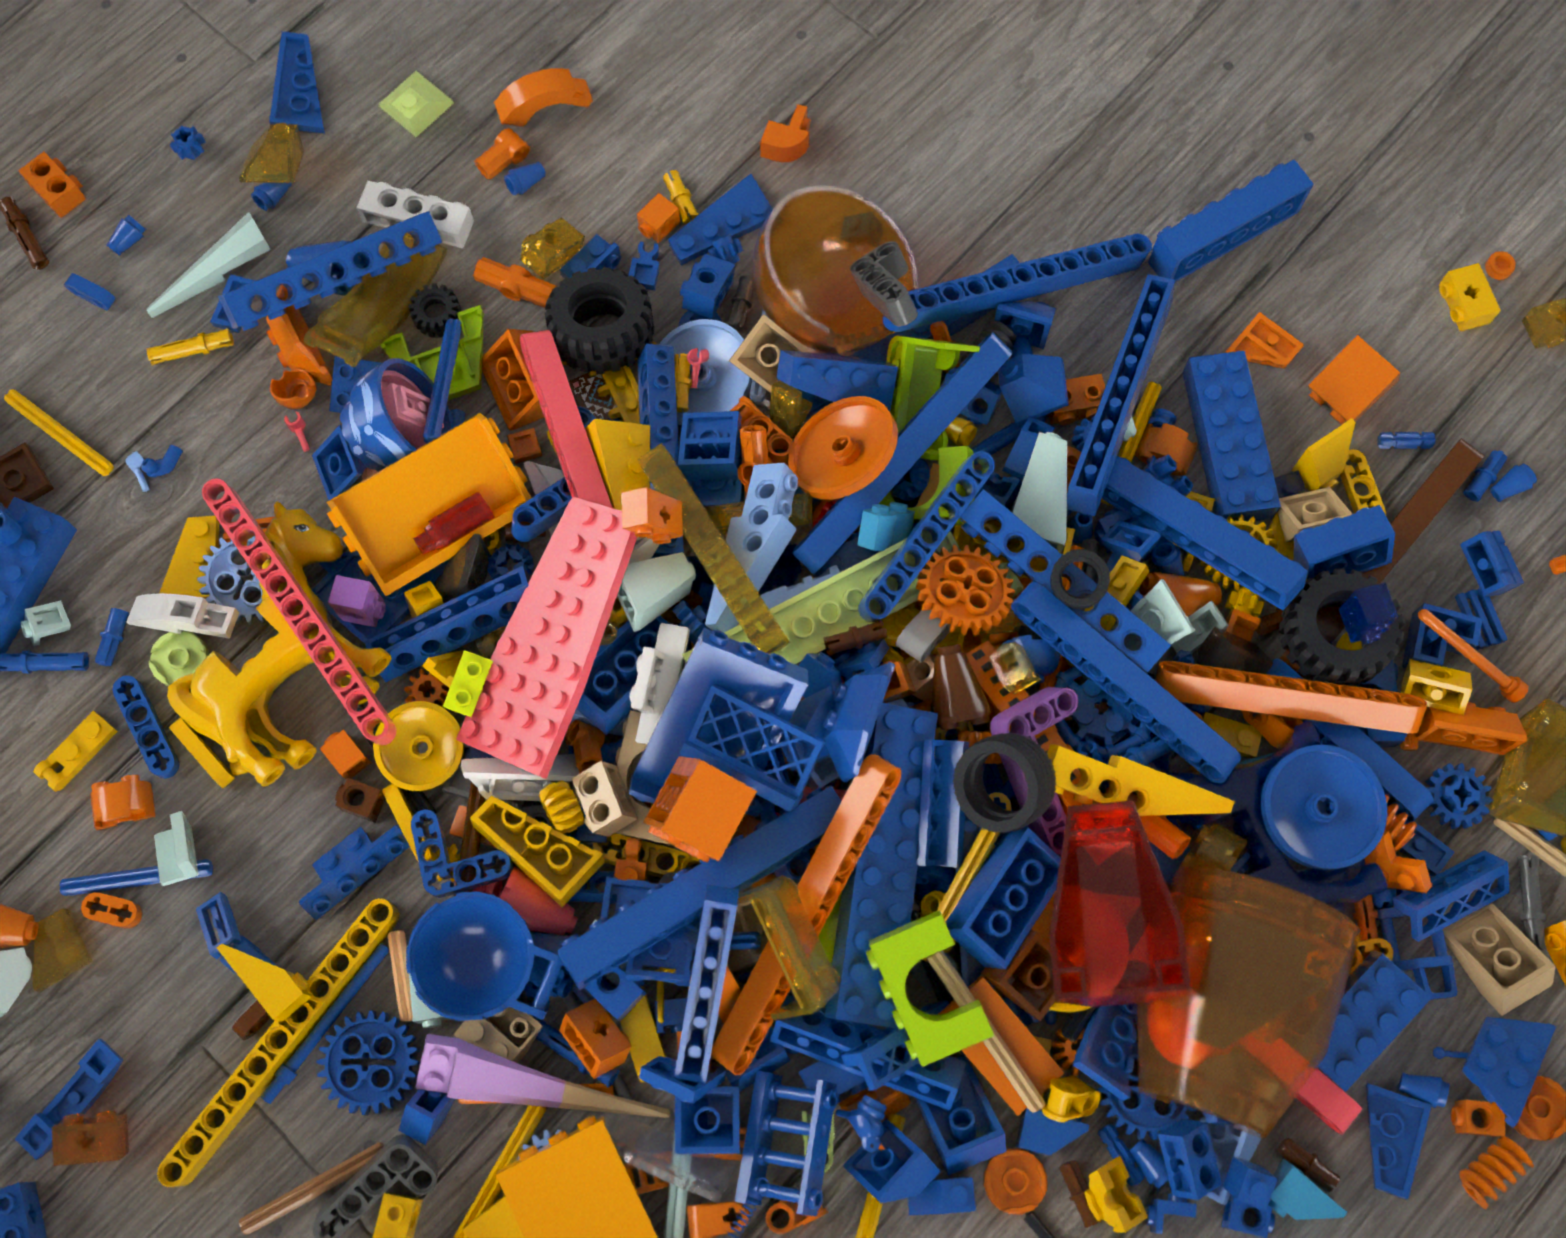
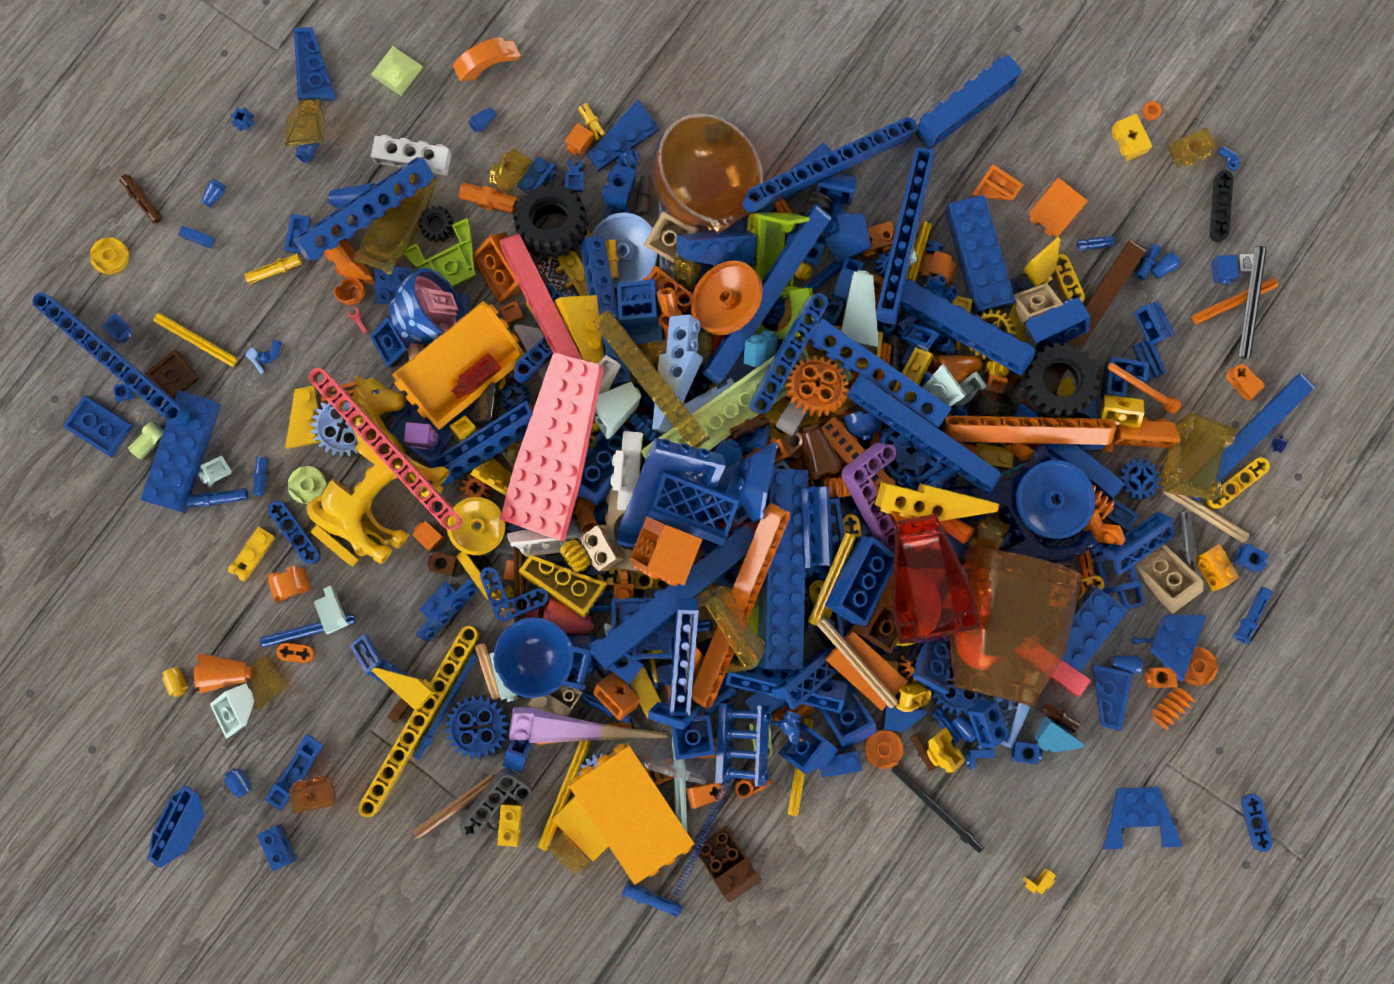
camera: 10 degrees left, 10 degrees up
(52, 184) = (154, 160): orange brick -> none
(181, 613) = (305, 456): white slope -> none
(235, 248) = (287, 196): light aqua wedge -> none
(442, 380) = (452, 277): blue axle -> none
(467, 683) = (503, 483): neon yellow hinge -> none
(507, 149) = (466, 100): orange piece -> none
(652, 515) = (609, 363): orange brick -> none
(696, 363) = (619, 244): coral hand -> none
(786, 142) = (659, 74): orange brick -> none
(877, 280) = (734, 176): dark grey beam -> none
(929, 1034) = (824, 670): lime arch -> none
(976, 801) = (837, 522): black tyre -> none
(1013, 678) = (846, 432): clear yellow brick -> none
(1077, 556) = (890, 387): black tyre -> none
(1249, 1183) = (1025, 734): blue brick -> none
(1368, 613) = (1075, 374): clear blue brick -> none

